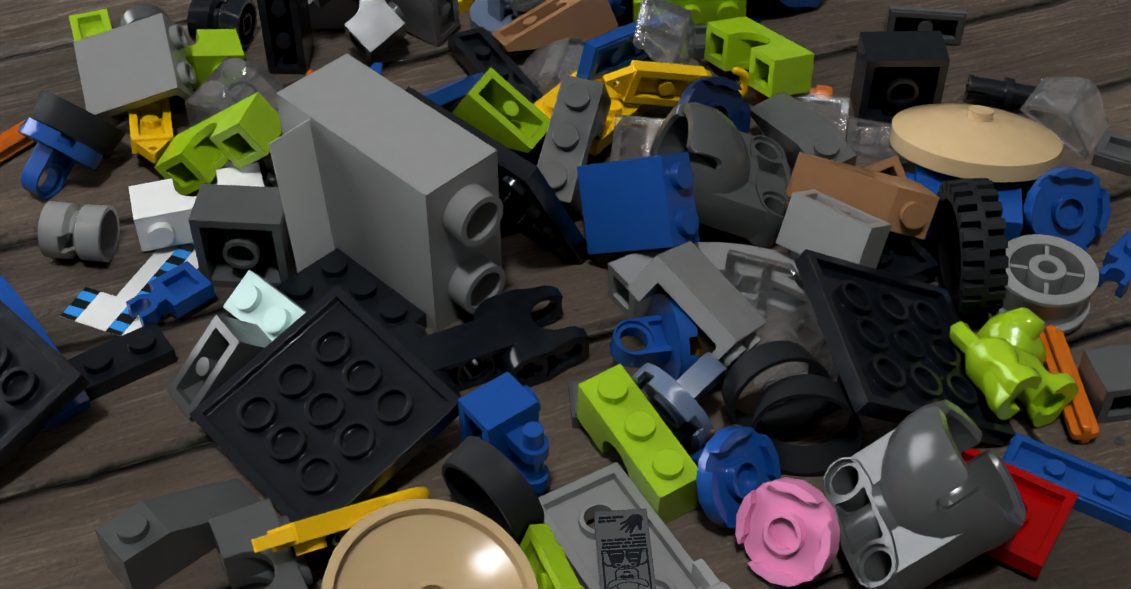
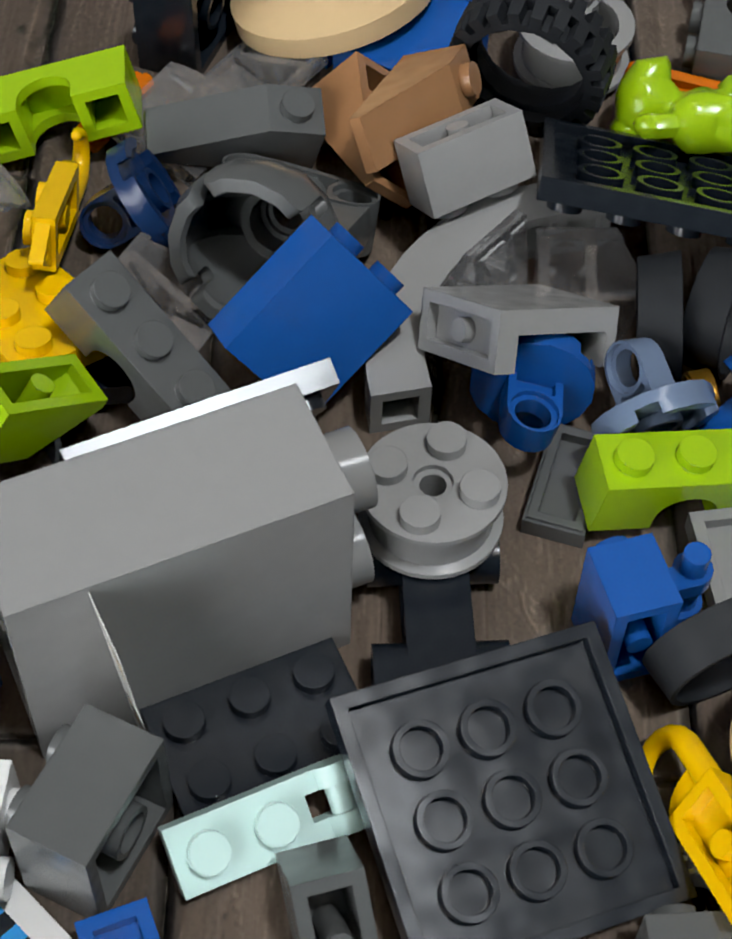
camera: 70 degrees left, 10 degrees up
(525, 303) = (435, 500): none -> light grey wheel

